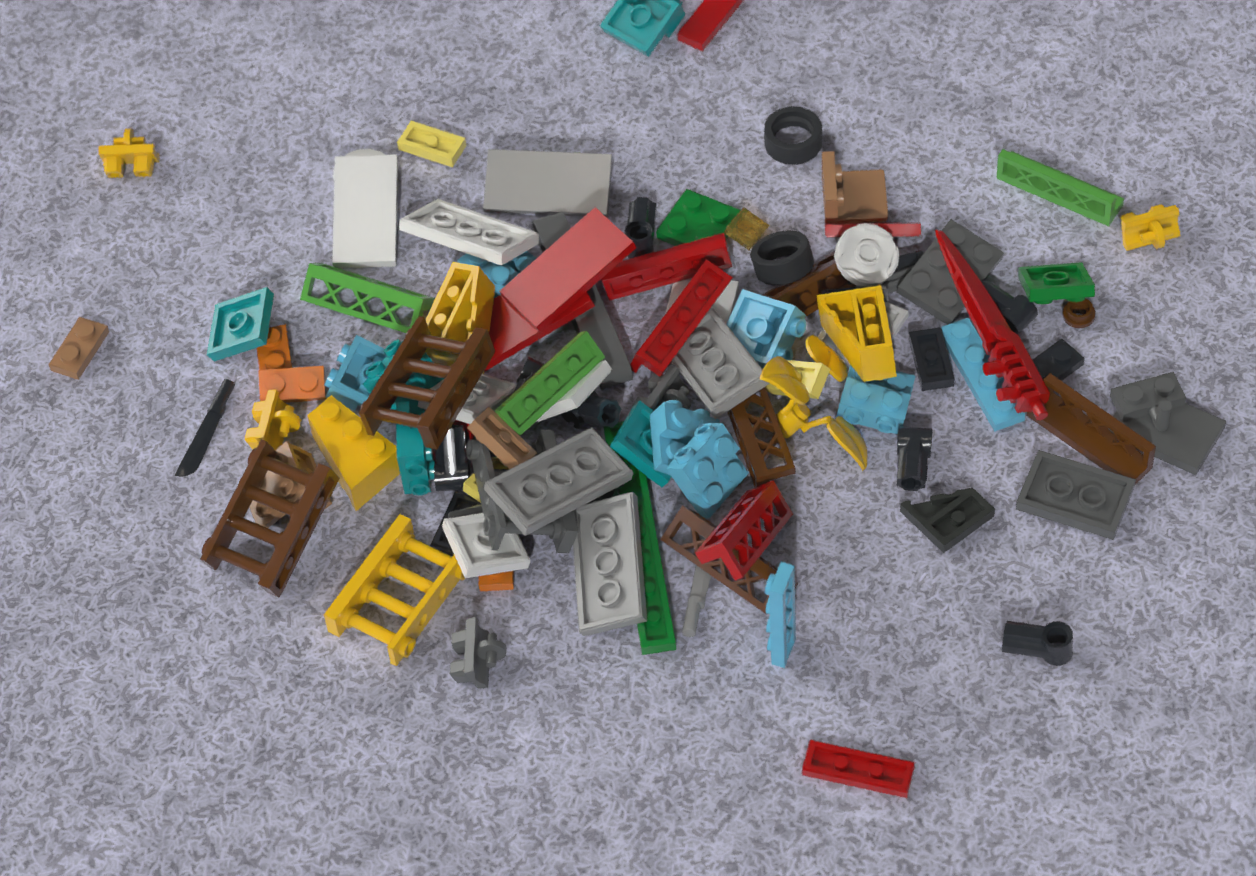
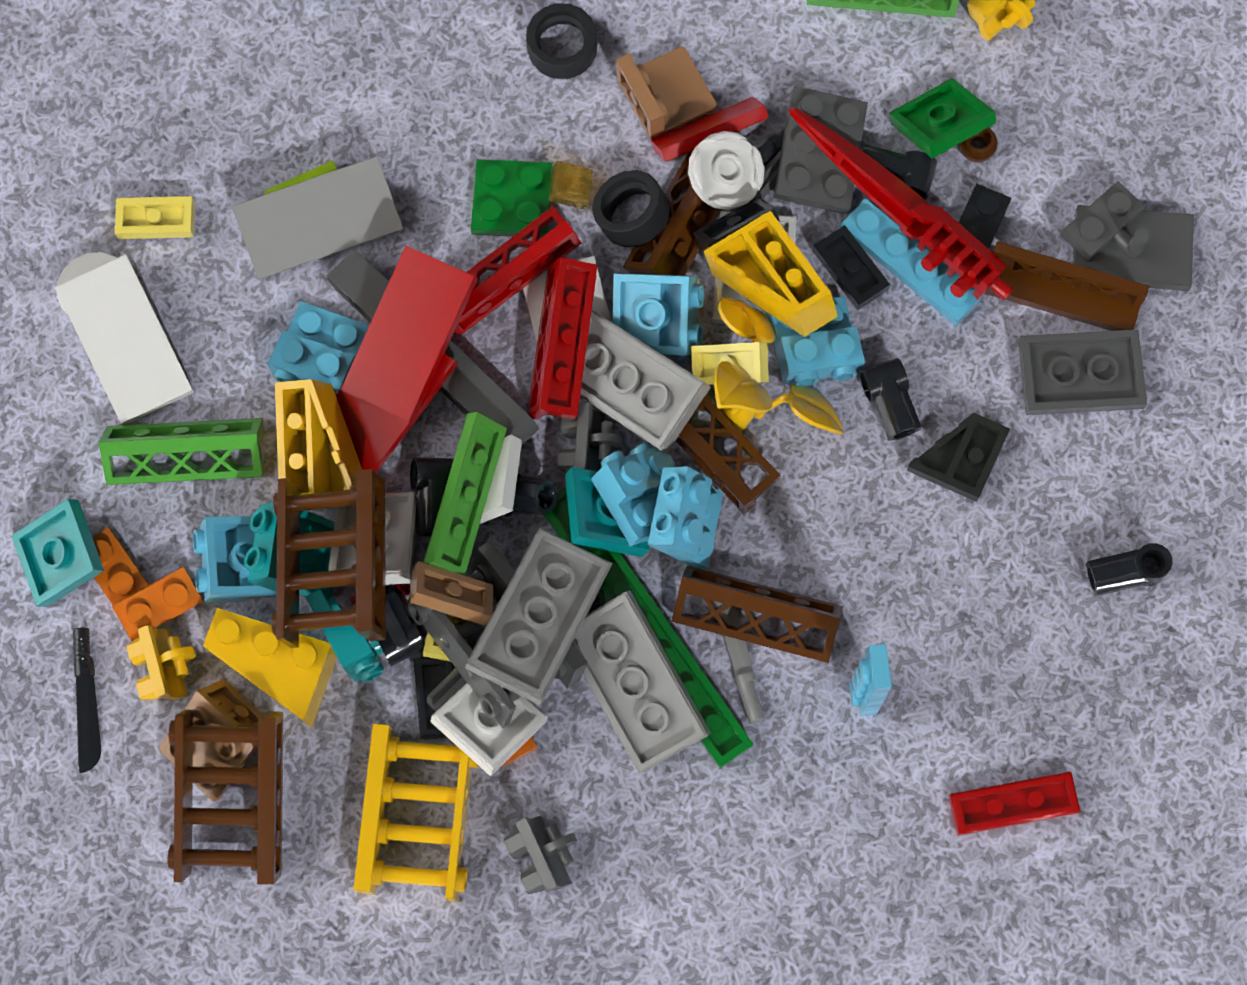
camera: 25 degrees left, 20 degrees up
(469, 231) = (262, 322): white tile -> none
(641, 225) = (451, 231): black piece -> none
(744, 520) = (762, 577): red fence -> none

